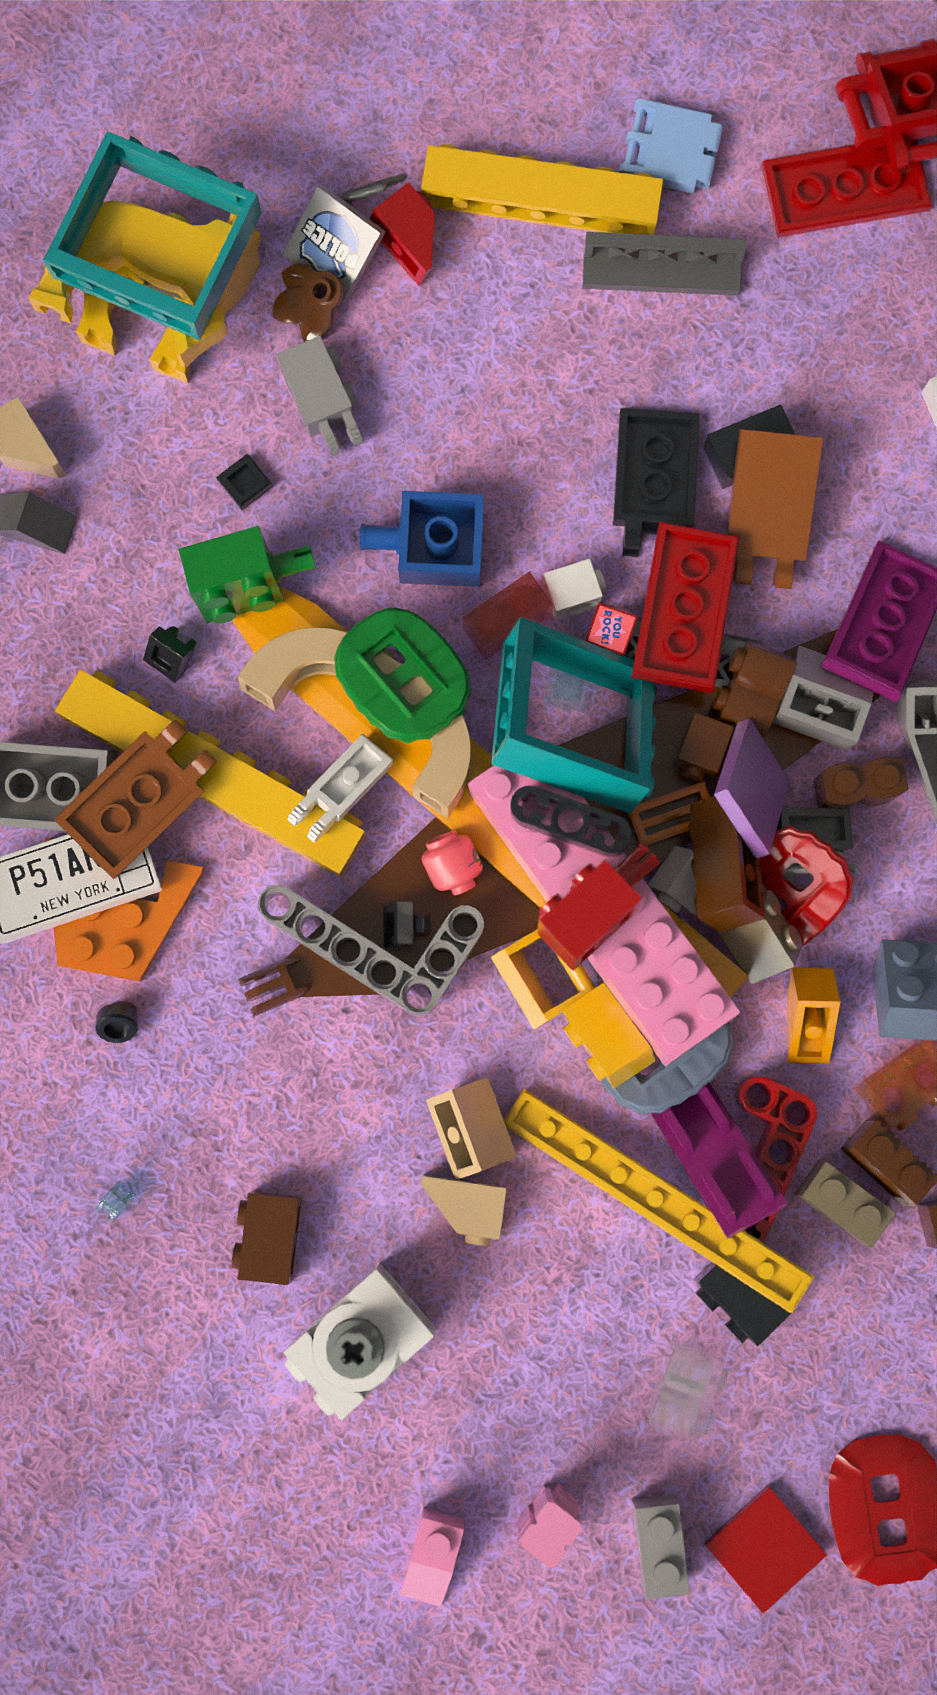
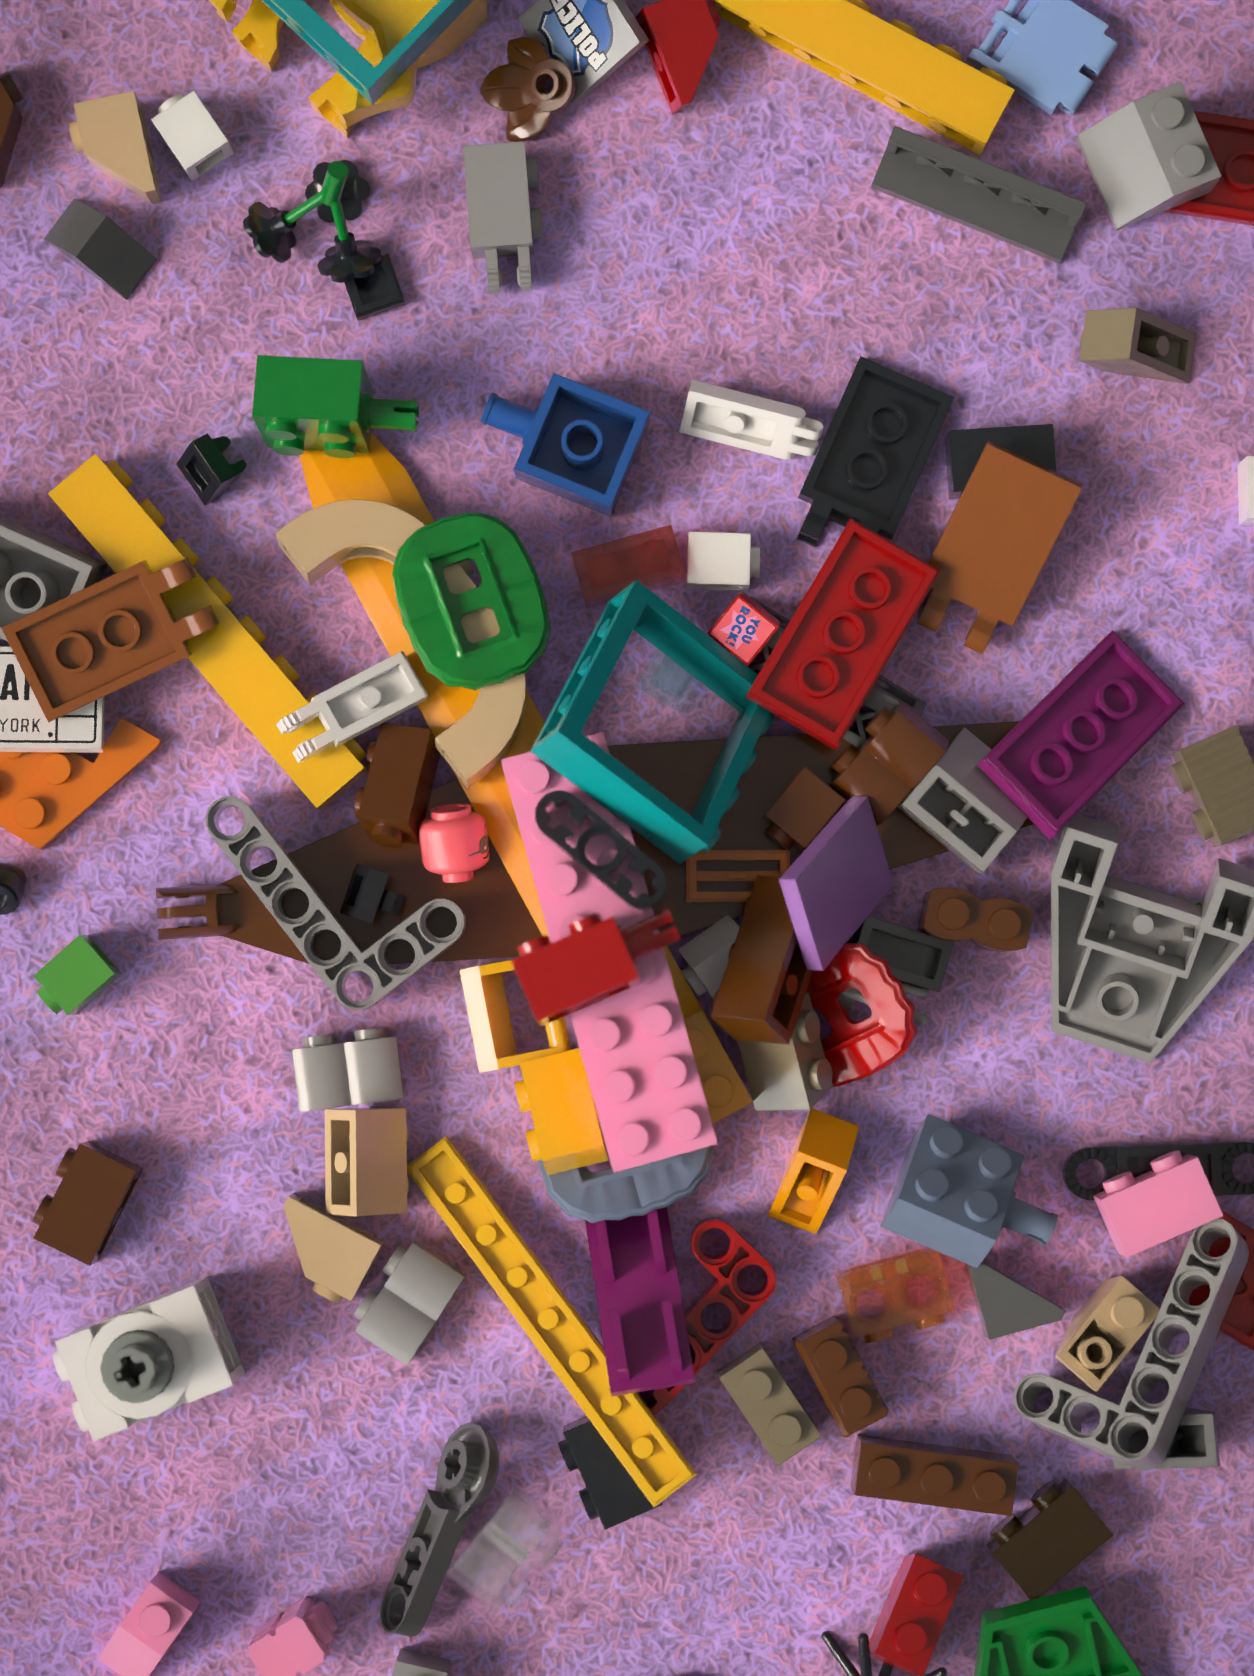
camera: 20 degrees right, 5 degrees up
(72, 416) = (191, 134): none -> white brick
(195, 426) = (338, 198): none -> black plant
(199, 1067) = (75, 976): none -> bright green brick
(394, 834) = (398, 784): none -> reddish brown brick
(432, 1065) = (349, 1071): none -> light grey brick
(542, 1225) = (408, 1302): none -> light grey brick
(557, 482) = (749, 422): none -> white hinge
(634, 1349) = (462, 1483): none -> dark grey beam
(778, 193) = (1149, 156): none -> light grey slope
(817, 330) = (1137, 345): none -> slope

